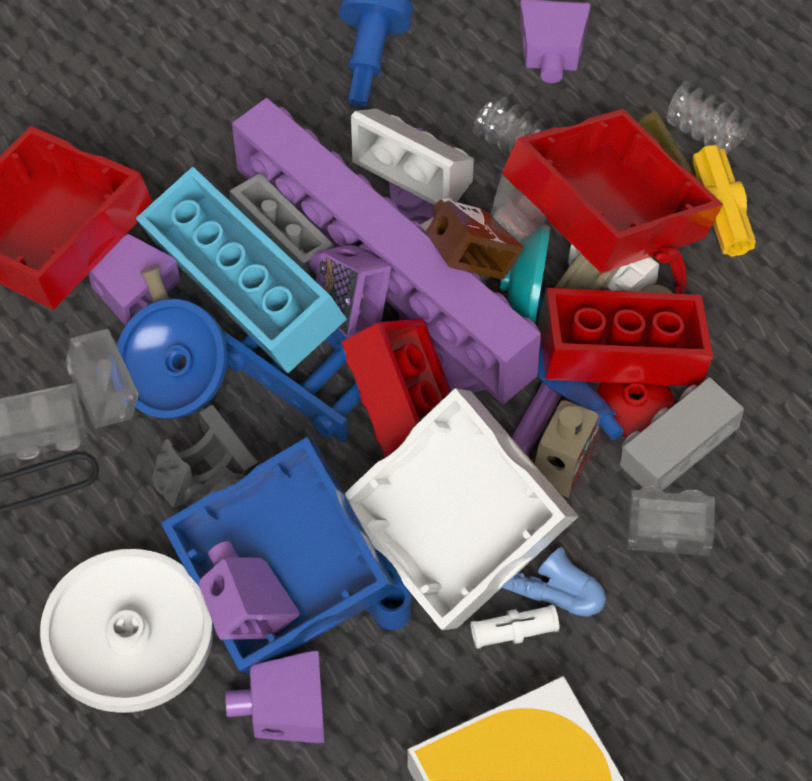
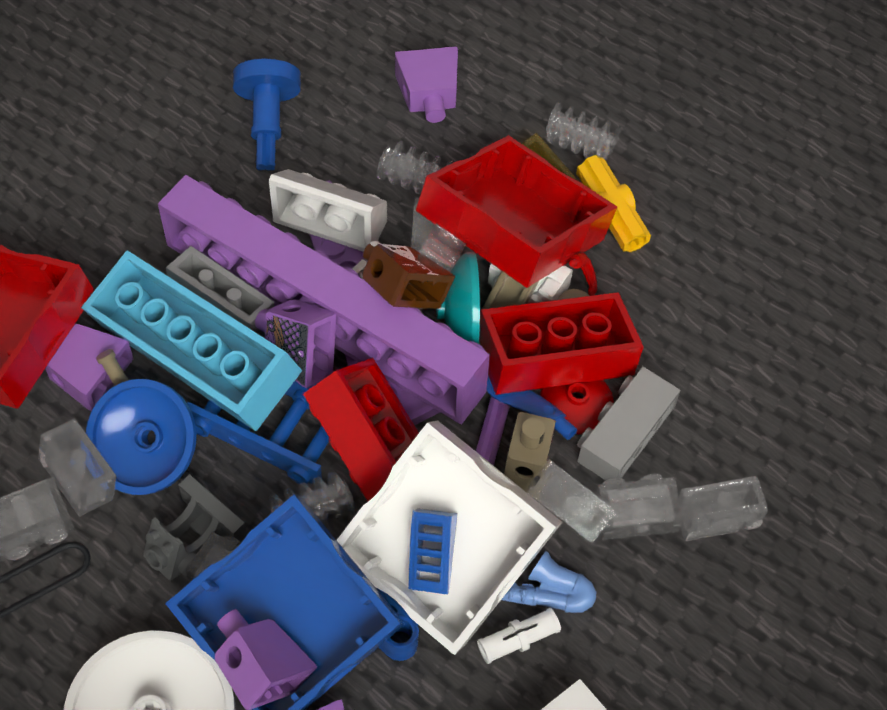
camera: 15 degrees left, 0 degrees up
(345, 453) = (322, 499): none -> clear piece
(428, 504) = (448, 522): none -> blue slope
(594, 497) = (570, 501): none -> clear brick
(757, 537) = (722, 508): none -> clear brick

